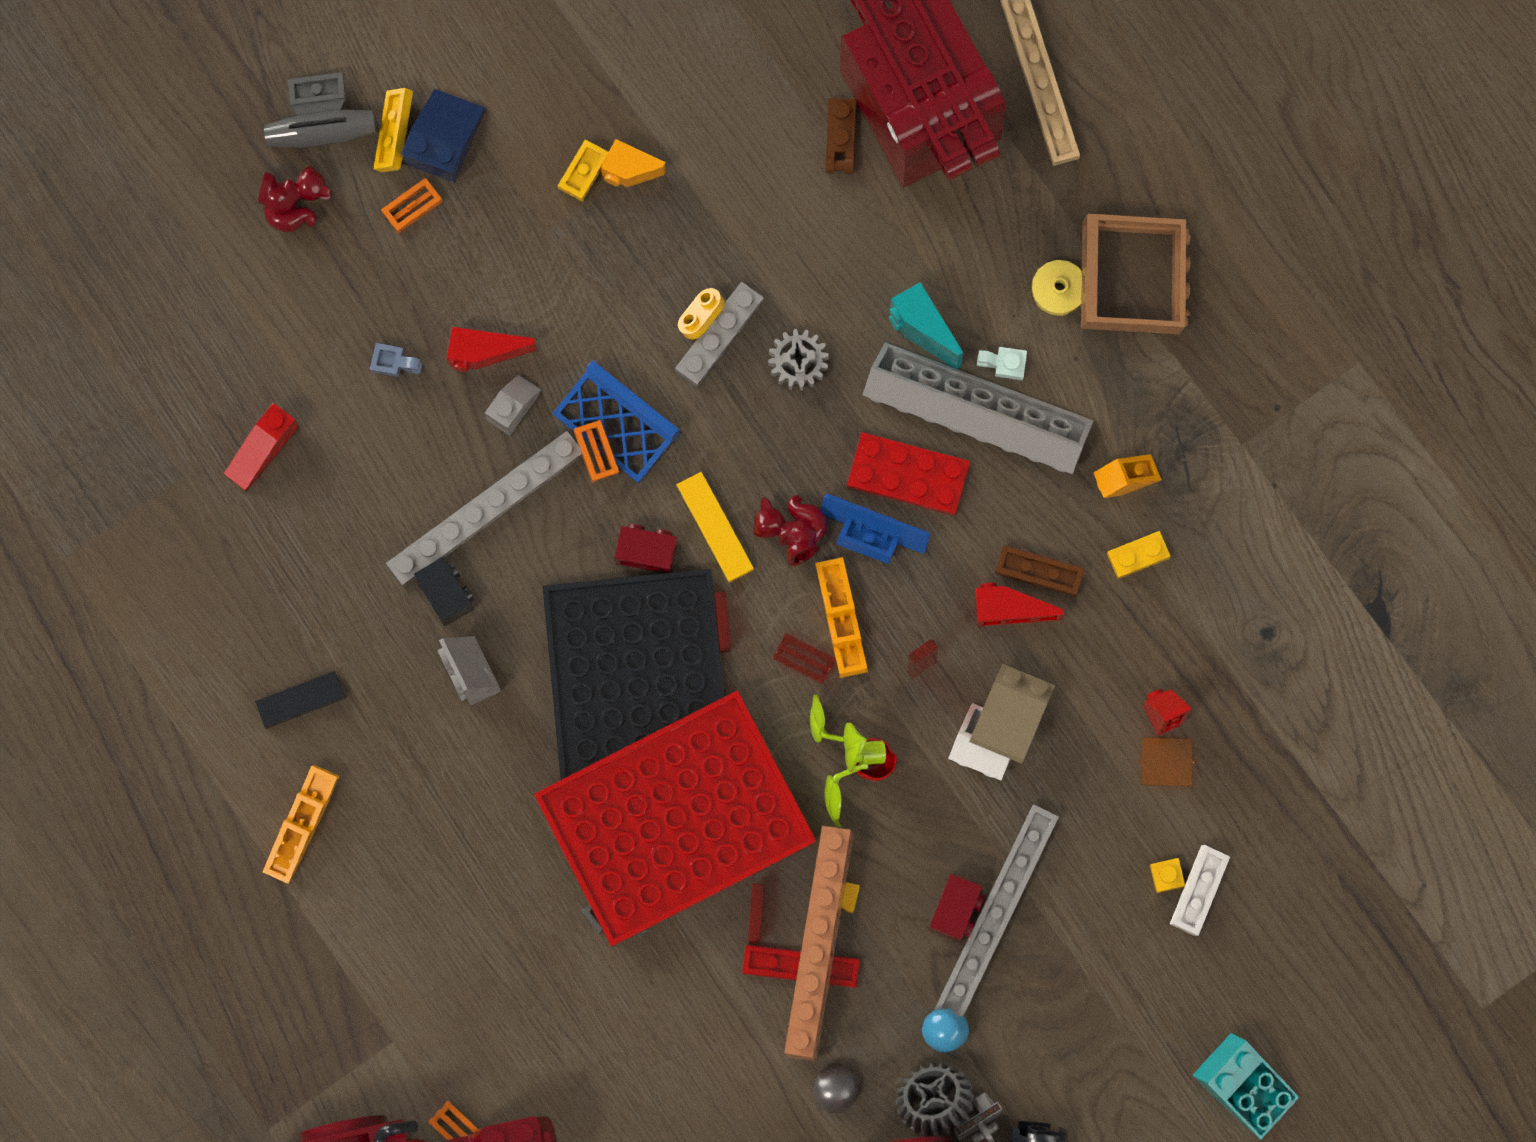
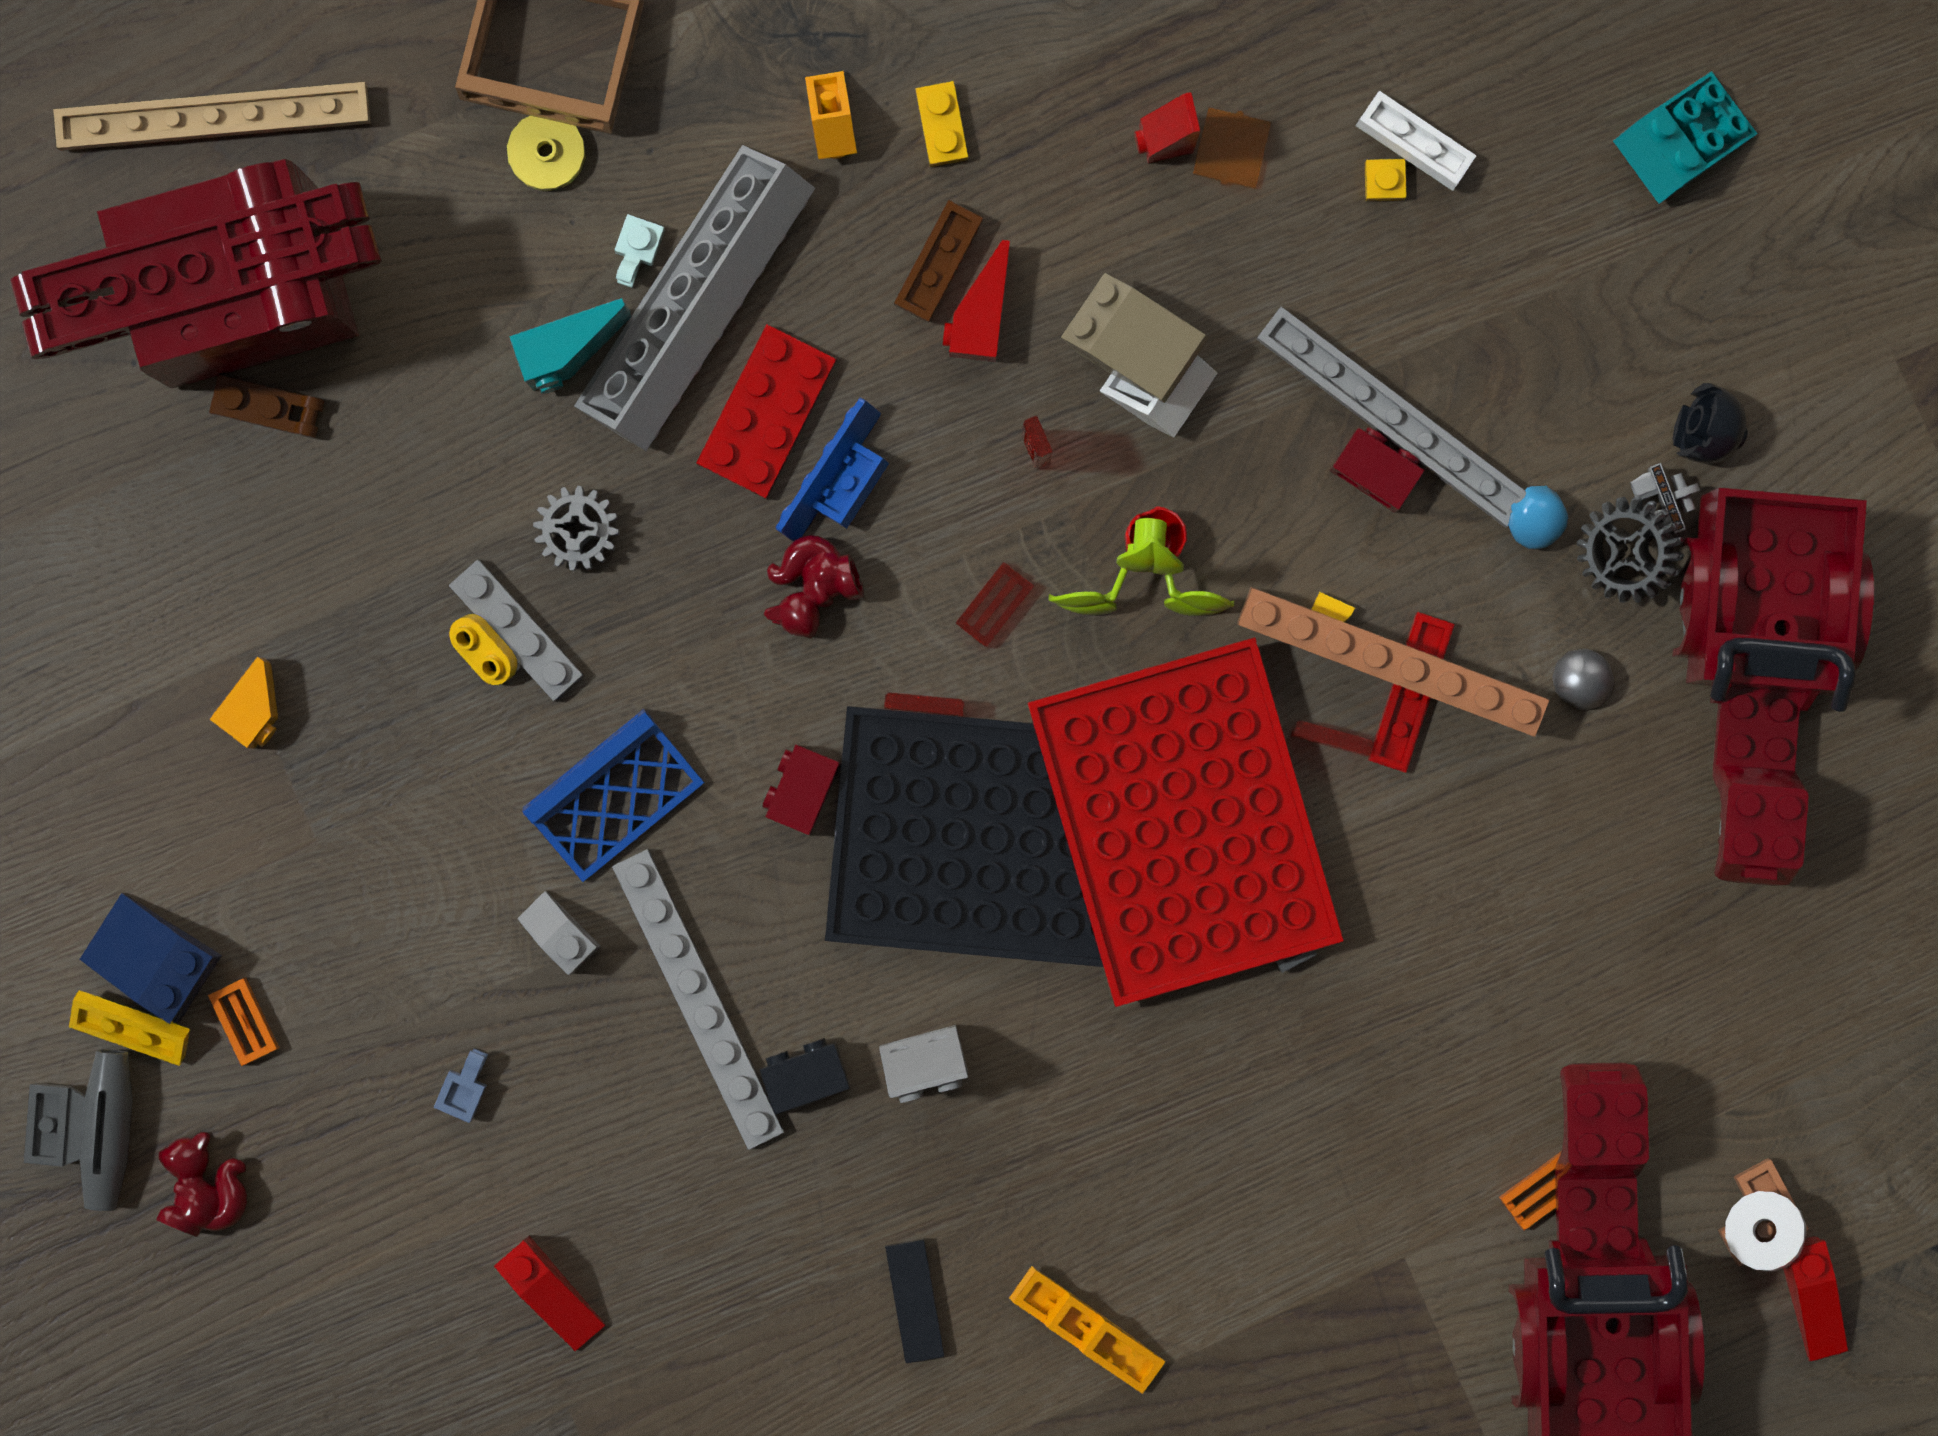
camera: 80 degrees left, 10 degrees up
(481, 349) = (472, 963): red slope -> none
(583, 170) = (243, 772): yellow plate -> none
(588, 429) = (618, 836): orange tile -> none
(715, 527) = (787, 689): yellow tile -> none
(841, 617) = (948, 542): light orange slope -> none

